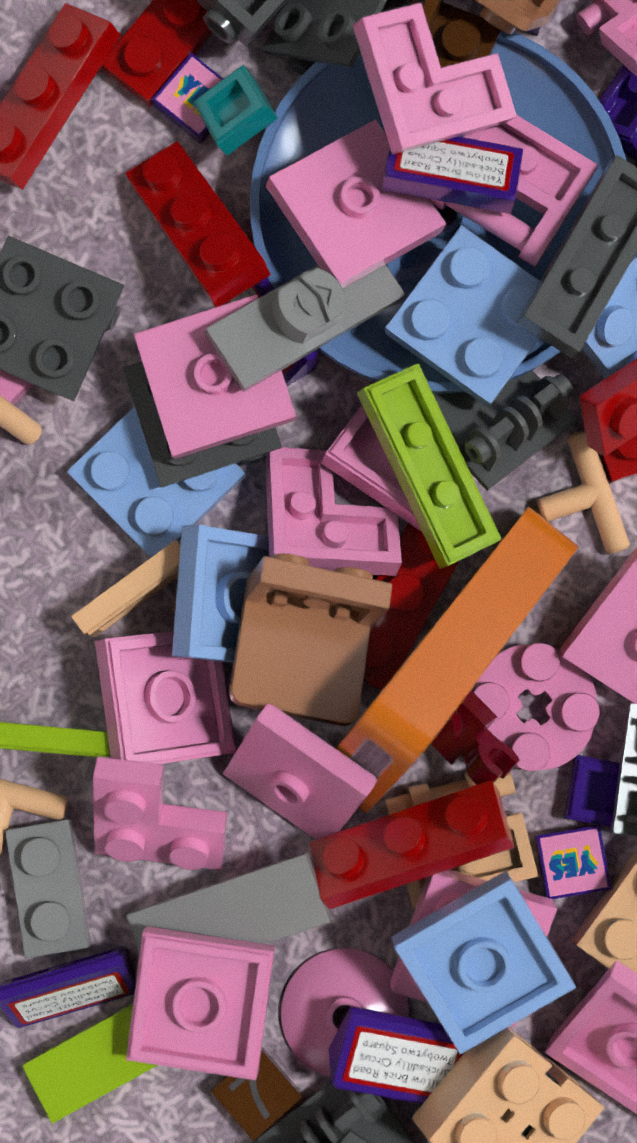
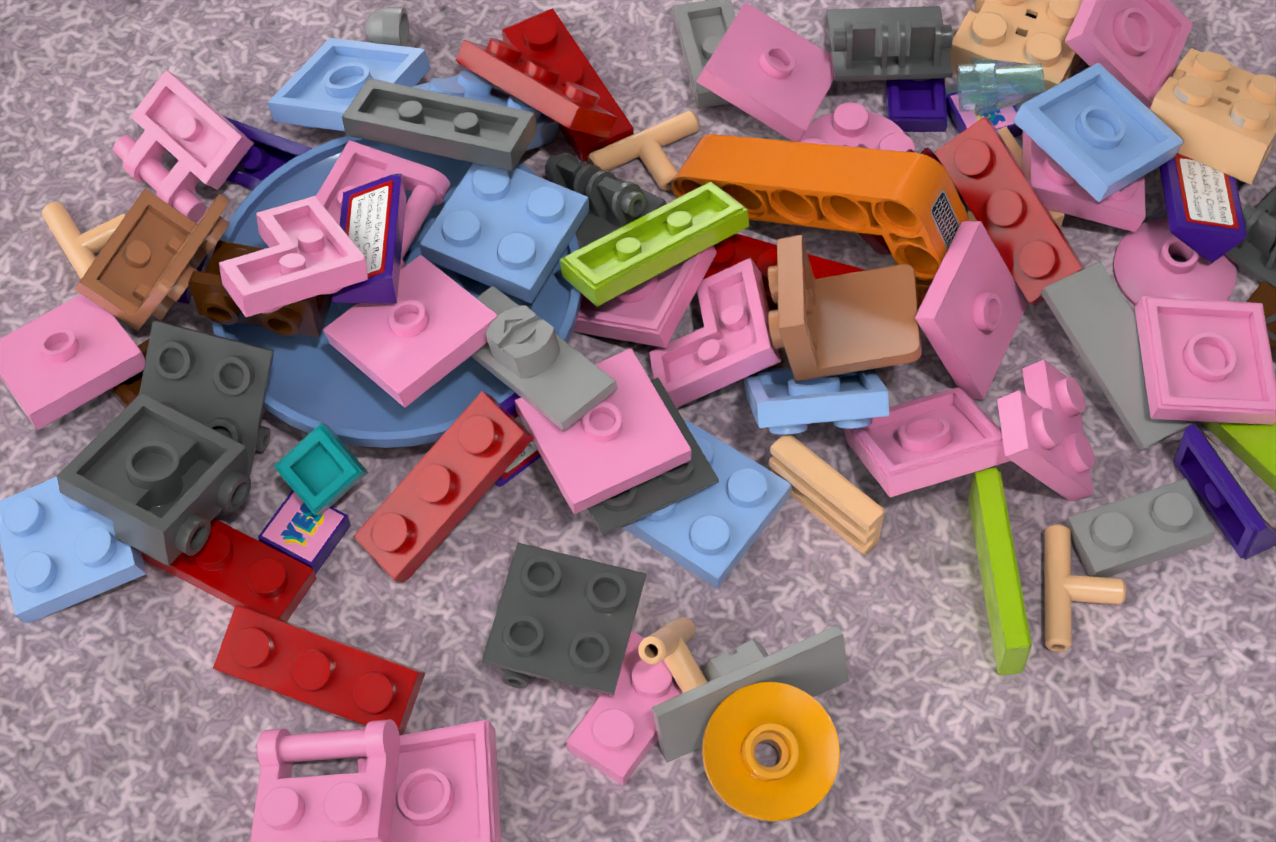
camera: 100 degrees left, 25 degrees down
(583, 875) = (997, 84): none -> clear light blue cone

